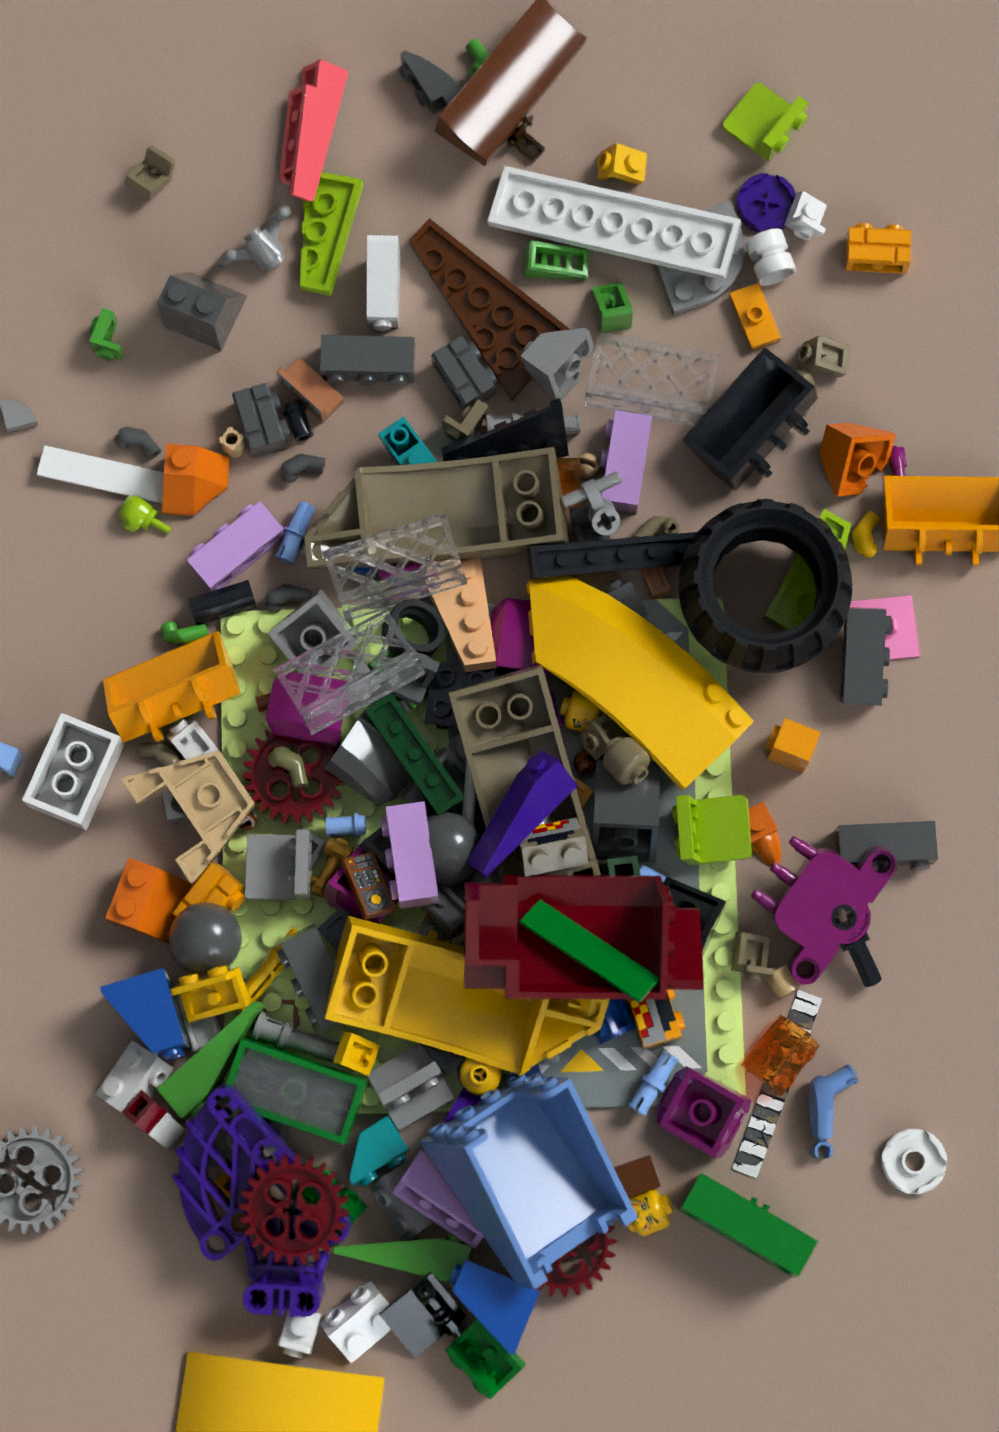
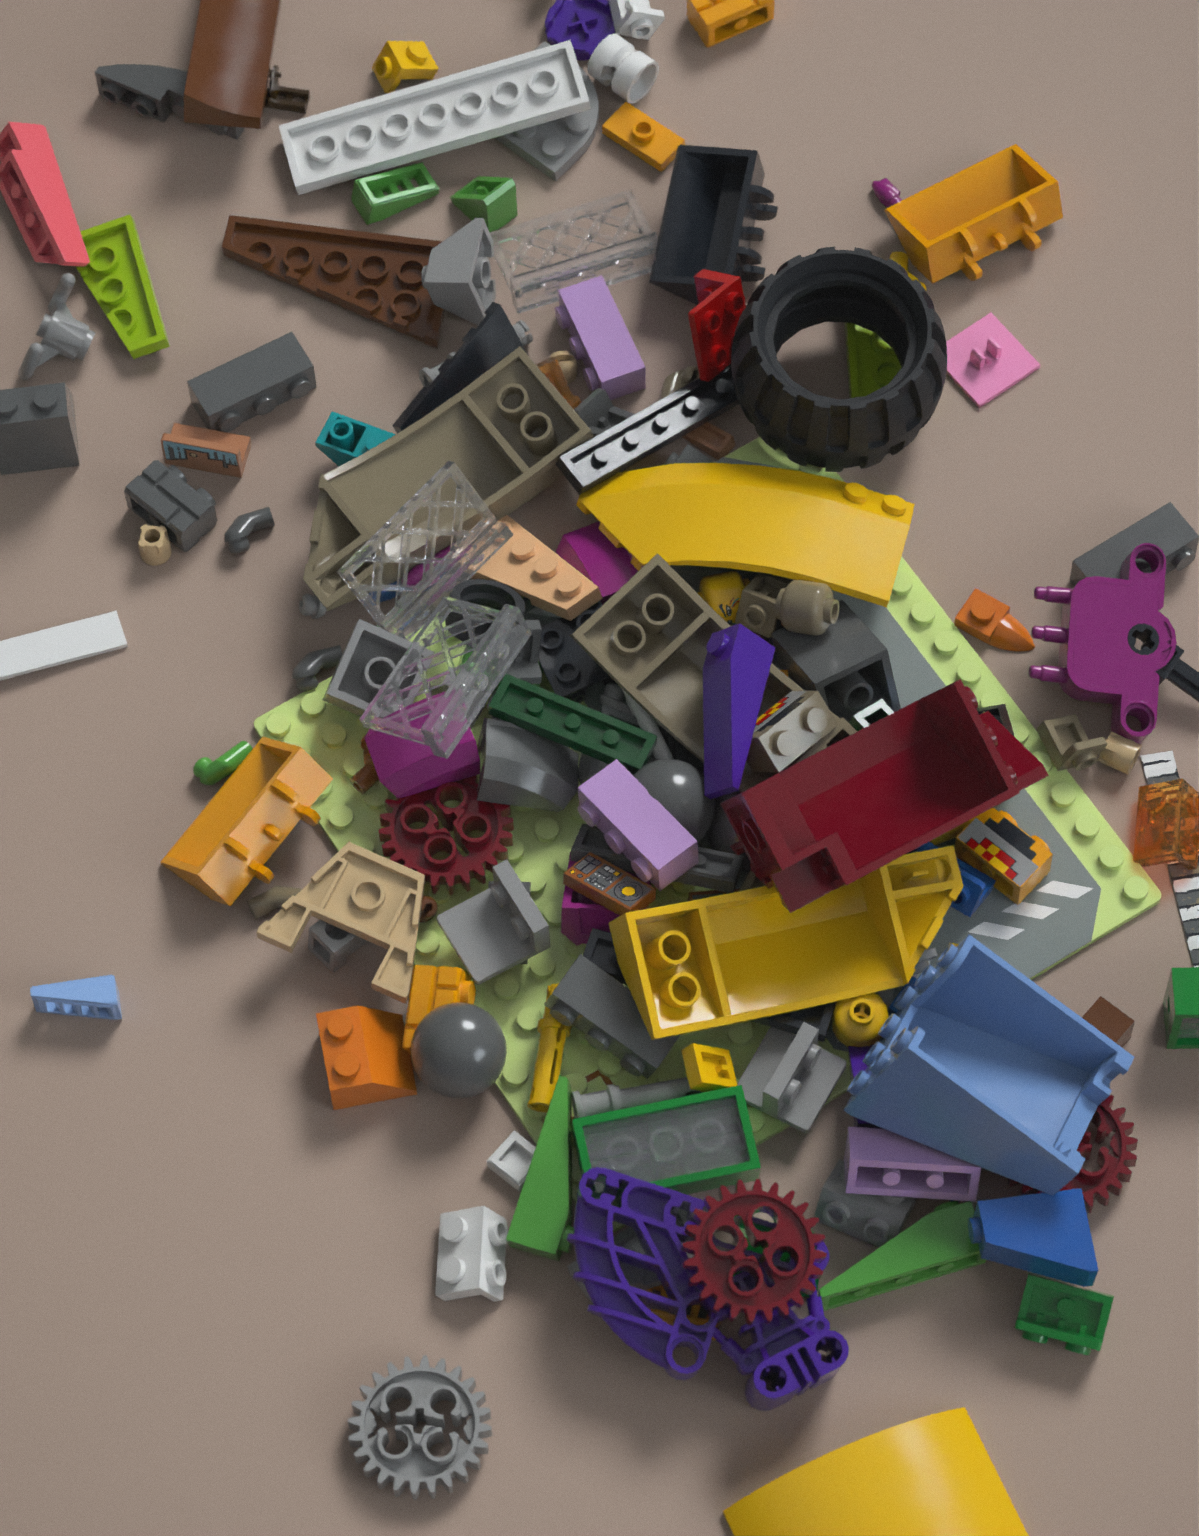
camera: 30 degrees left, 15 degrees down
(73, 771) = (192, 965): white brick -> none
(137, 437) = (44, 595): dark grey arm -> none
(138, 513) = (93, 670): lime piece -> none
(151, 1012) = (445, 1162): blue slope -> none
(154, 1120) = (525, 1276): leg -> none
(190, 738) = (298, 861): white bracket -> none
(192, 478) = (130, 602): orange slope -> none
(212, 994) = (505, 1099): yellow bracket -> none
(222, 602) = (248, 708): black axle -> none
(235, 547) = (227, 644): lavender brick -> none
(290, 761) = (439, 809): olive arm -> none
(295, 532) = (284, 596): light blue axle -> none
(298, 420) = (221, 490): black pin -> none
(299, 1334) = (837, 1413): white bracket -> none
(336, 851) = (548, 884): pearl gold bar -> none
(346, 825) = (539, 853): light blue pin -> none
(357, 1321) = (898, 1360): white bracket -> none
(375, 1149) = (799, 1162): teal slope -> none
(383, 282) = (220, 296): white slope -> none
(424, 1315) = (966, 1308): hinge -> none
(464, 373) = (368, 344): dark grey brick -> none
(471, 420) = (405, 388): dark tan bracket -> none
(478, 53) = (179, 39): bright green arm -> none
(589, 951) = (902, 796): green piece -> none
(598, 505) = (604, 394): light grey piece -> none
(652, 1212) = (1147, 1064): yellow head -> none
(653, 1083) = (1052, 927): light blue pin -> none
(702, 1111) = (1124, 922): magenta slope -> none
(703, 503) = (715, 320): none -> red bracket
(712, 829) = (943, 636): lime bracket -> none
(792, 745) = (970, 509): light orange brick -> none
(824, 356) = (744, 131): dark tan bracket -> none
(853, 454) = (839, 207): orange slope -> none
(865, 656) = (987, 387): dark grey brick -> none

